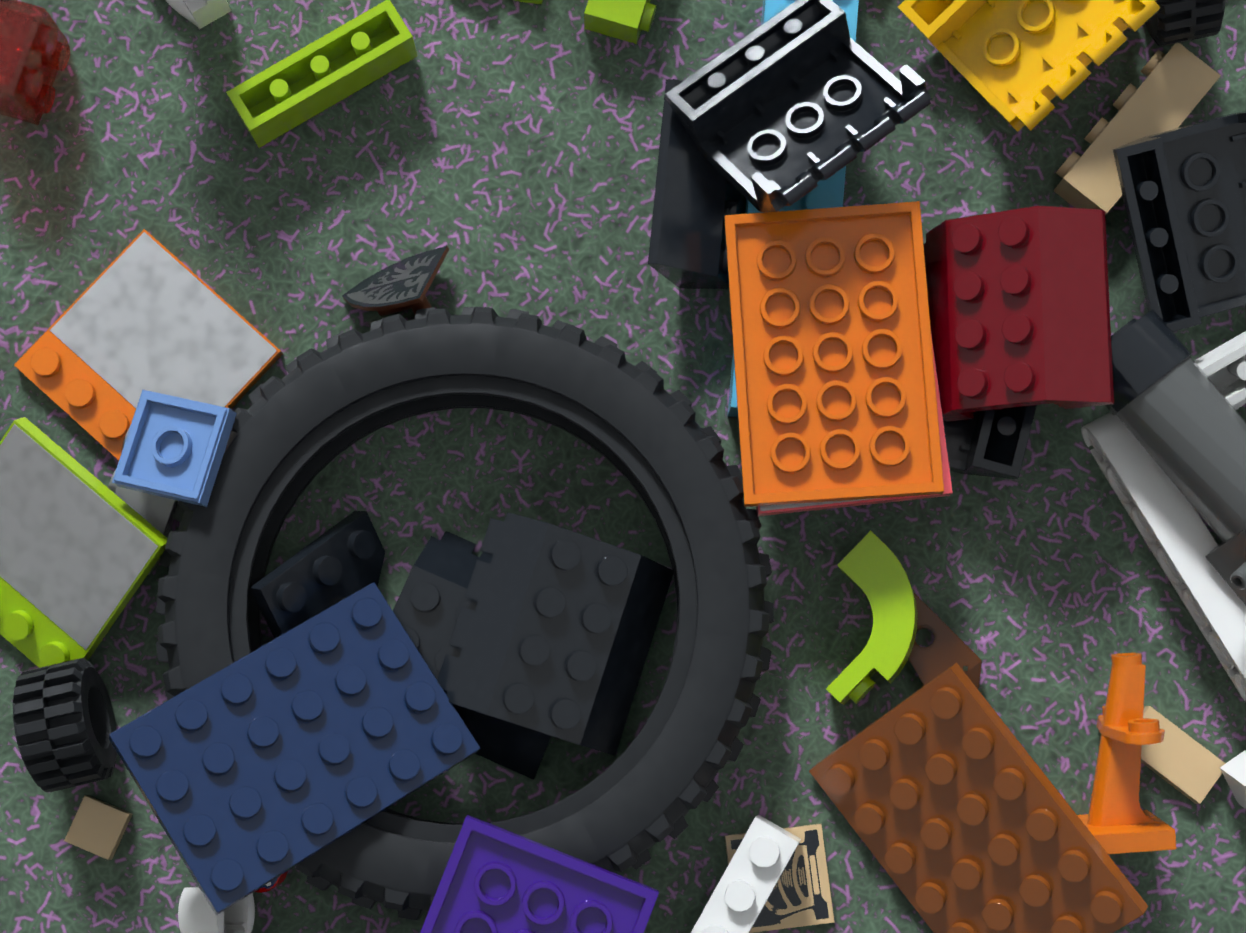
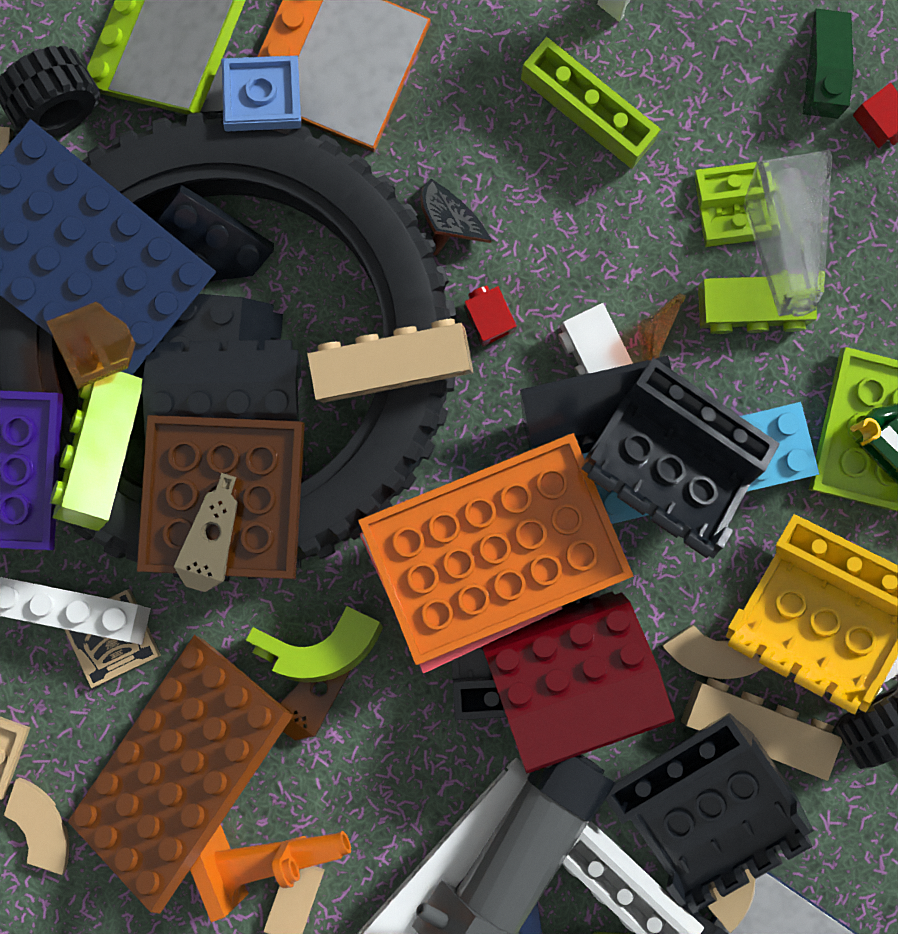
camera: 75 degrees right, 5 degrees up
(418, 756) = (92, 343): none -> clear orange slope
(538, 278) = (489, 315): none -> red brick
(550, 792) = (97, 451): none -> brick
(568, 395) = (390, 362): none -> tan brick
(616, 168) = (593, 341): none -> white brick
(623, 91) = (656, 327): none -> clear orange slope
(662, 658) = (186, 463): none -> reddish brown plate
(724, 696) = (203, 550): none -> dark tan piece
(1031, 163) = (710, 656): none -> tan tile

